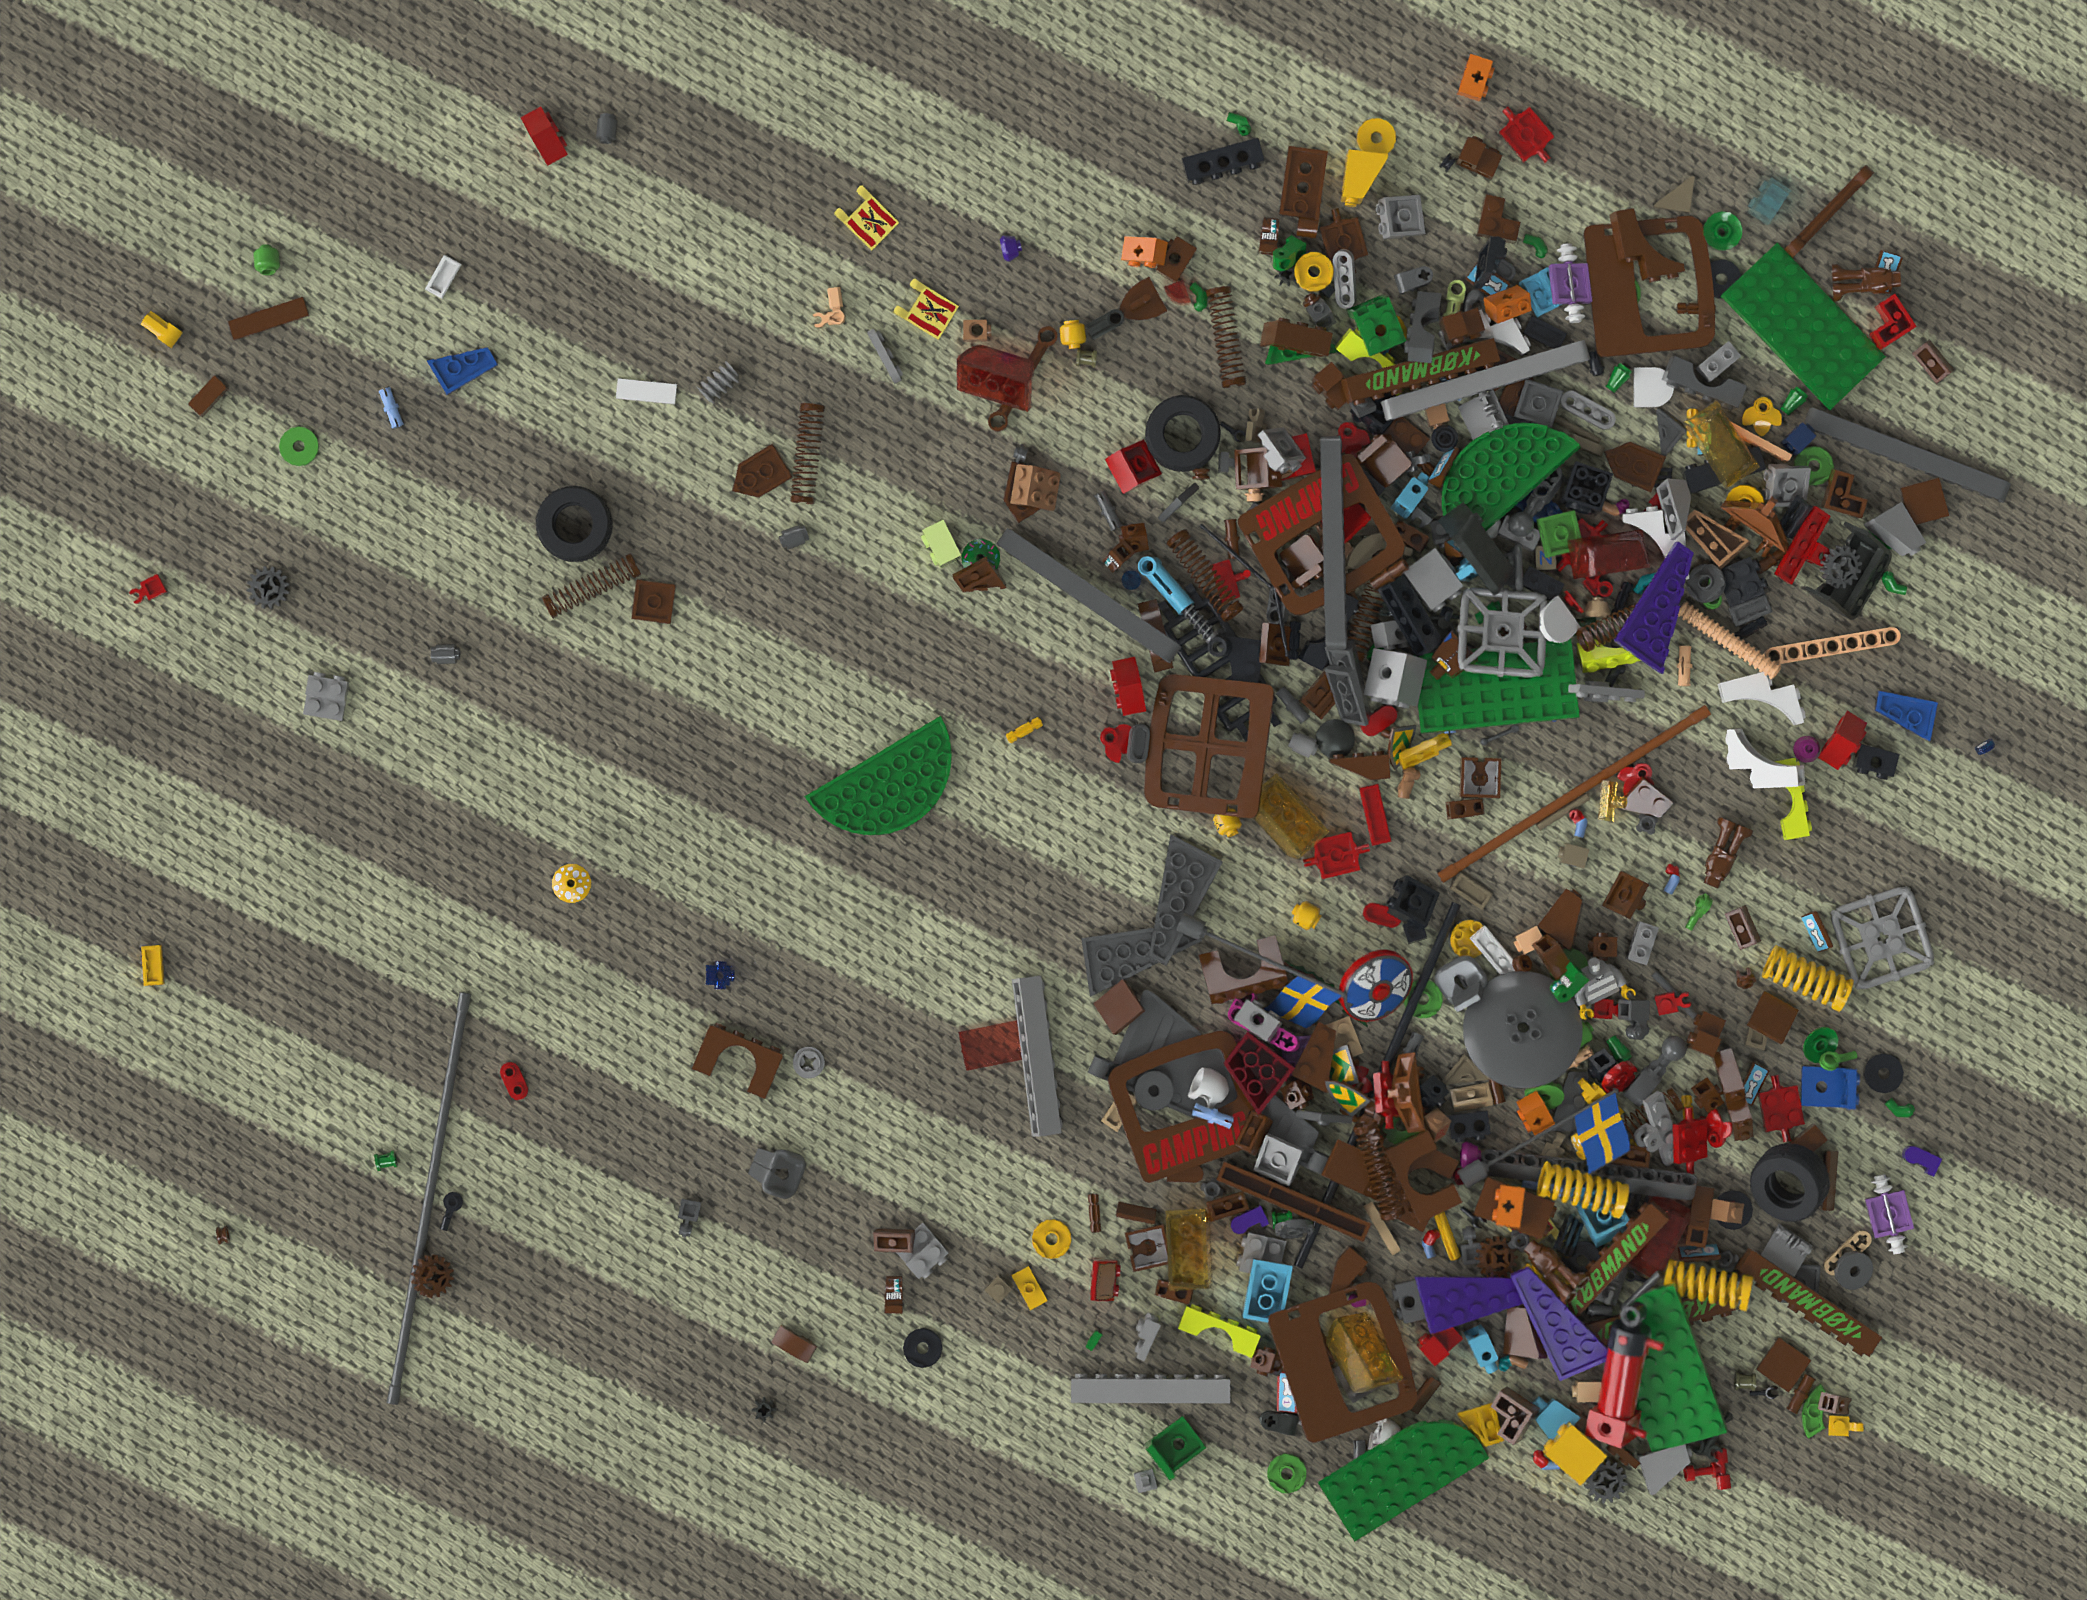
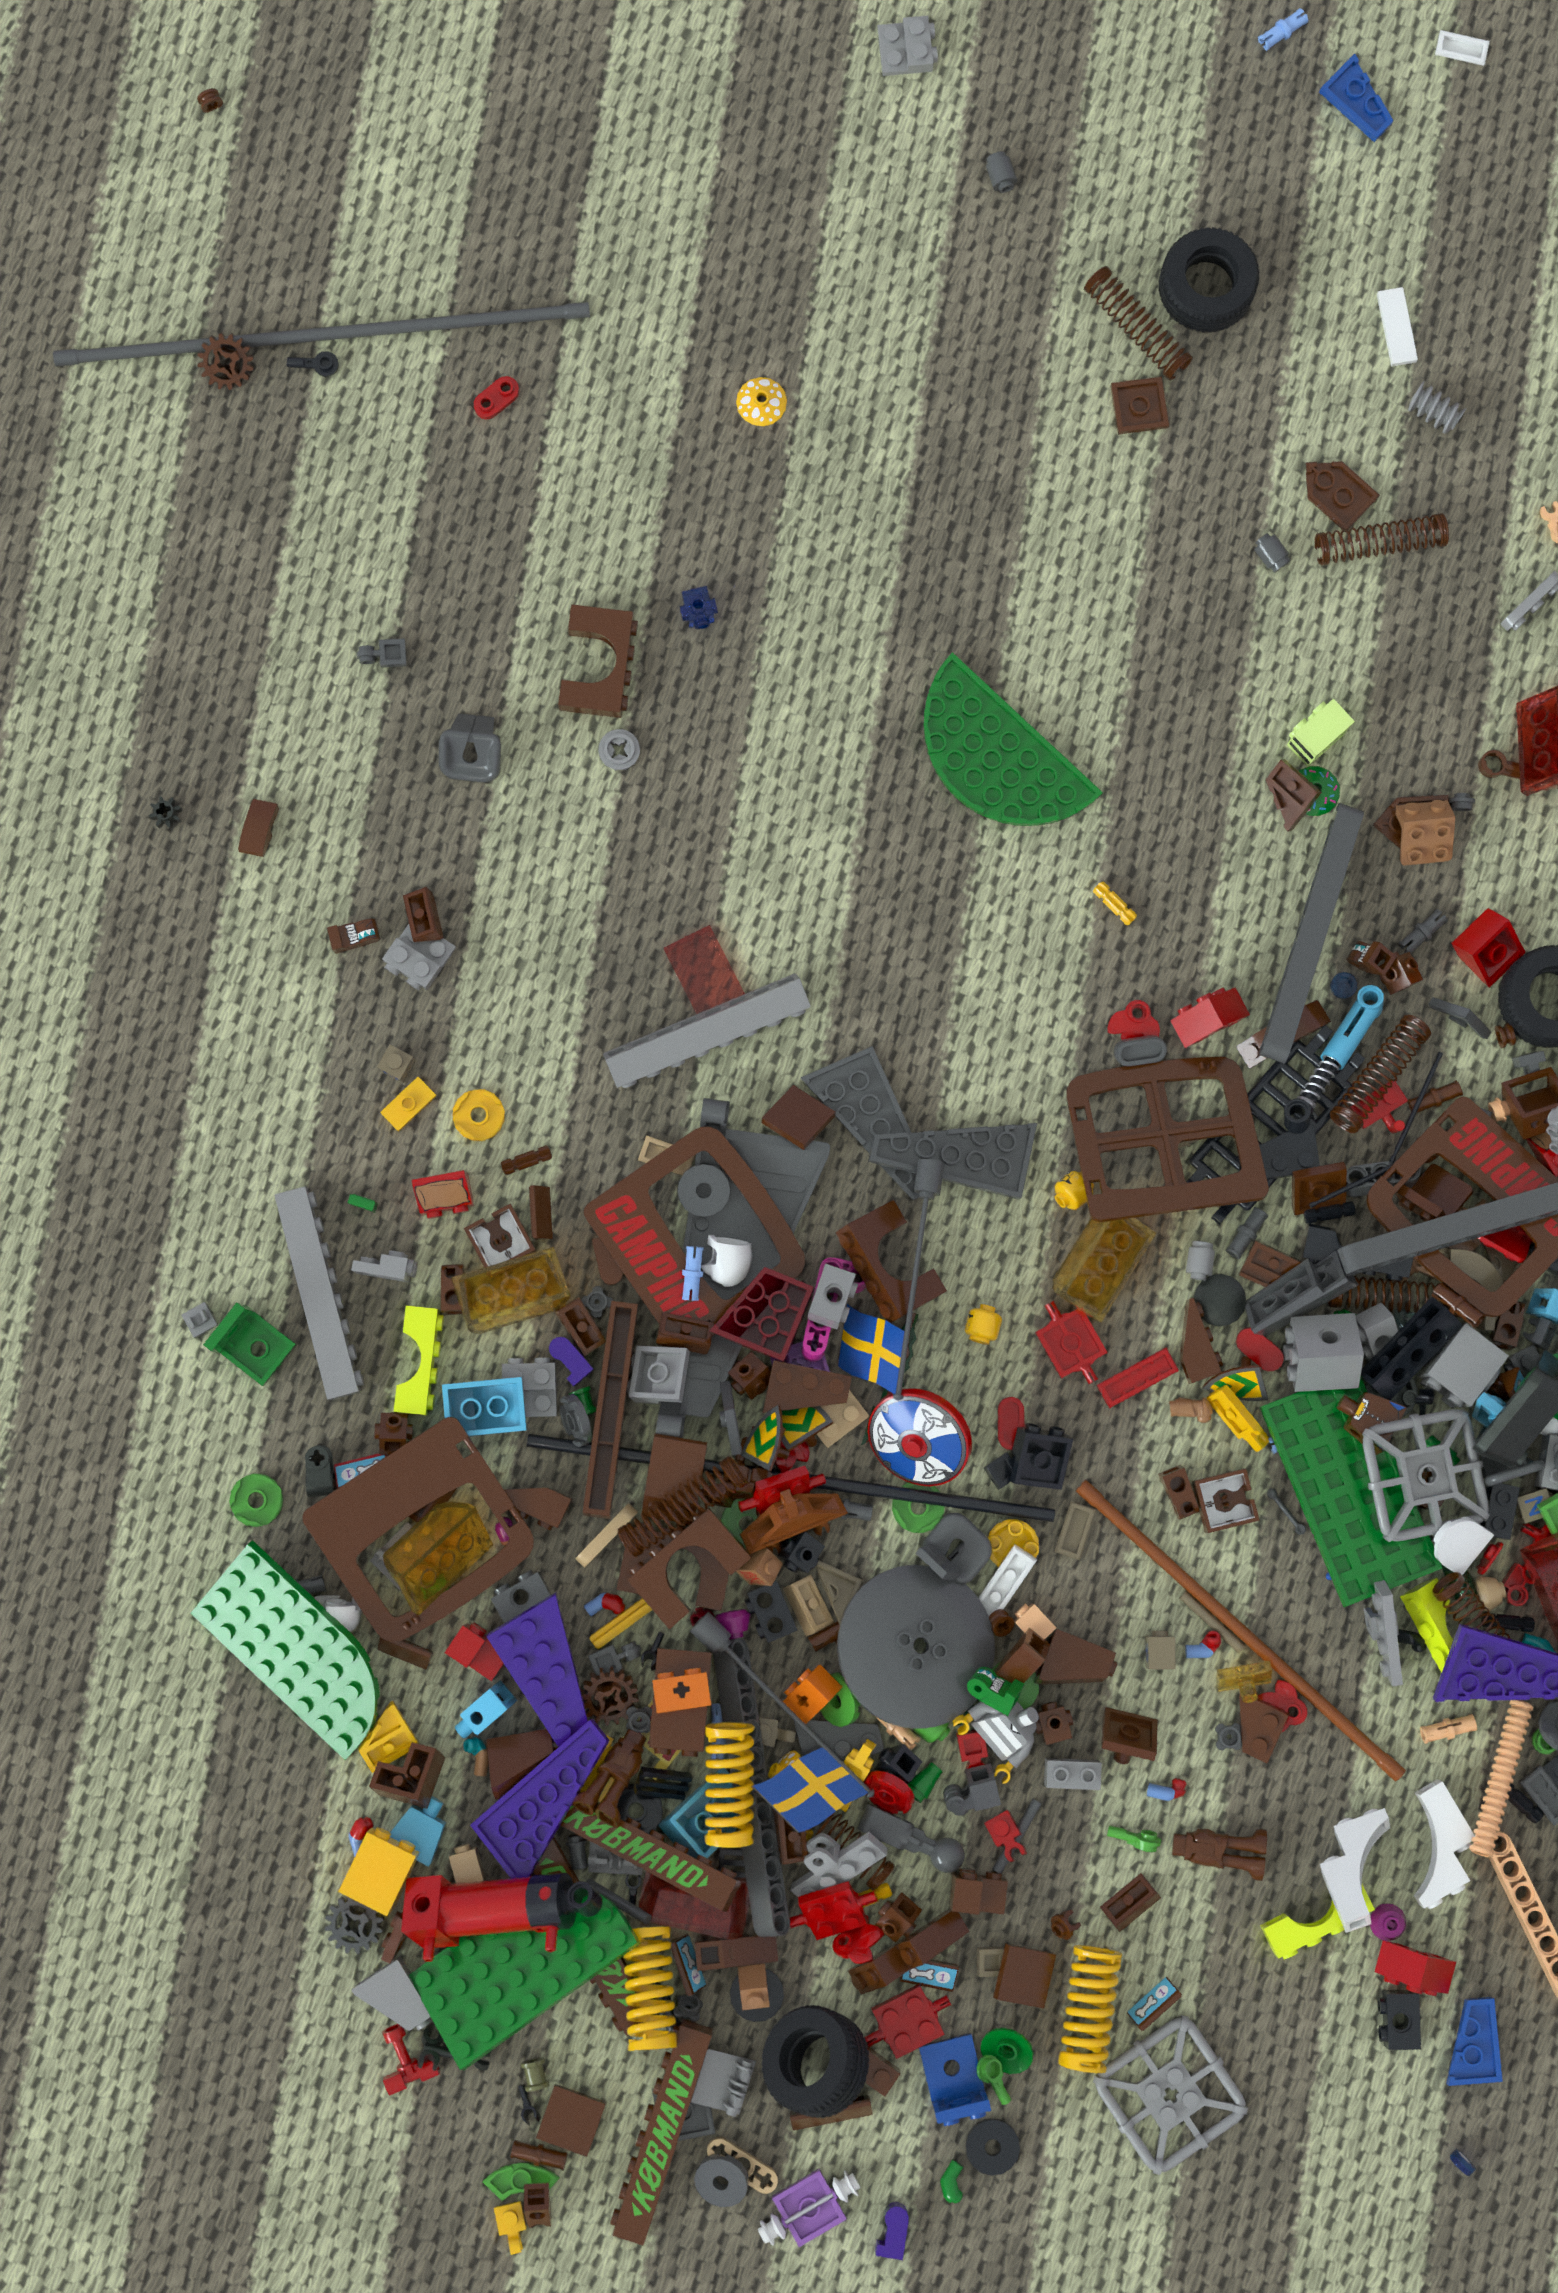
camera: 70 degrees right, 5 degrees down
(385, 1160) = (354, 269): green bush -> none
(928, 1337) = (311, 990): black tile -> none

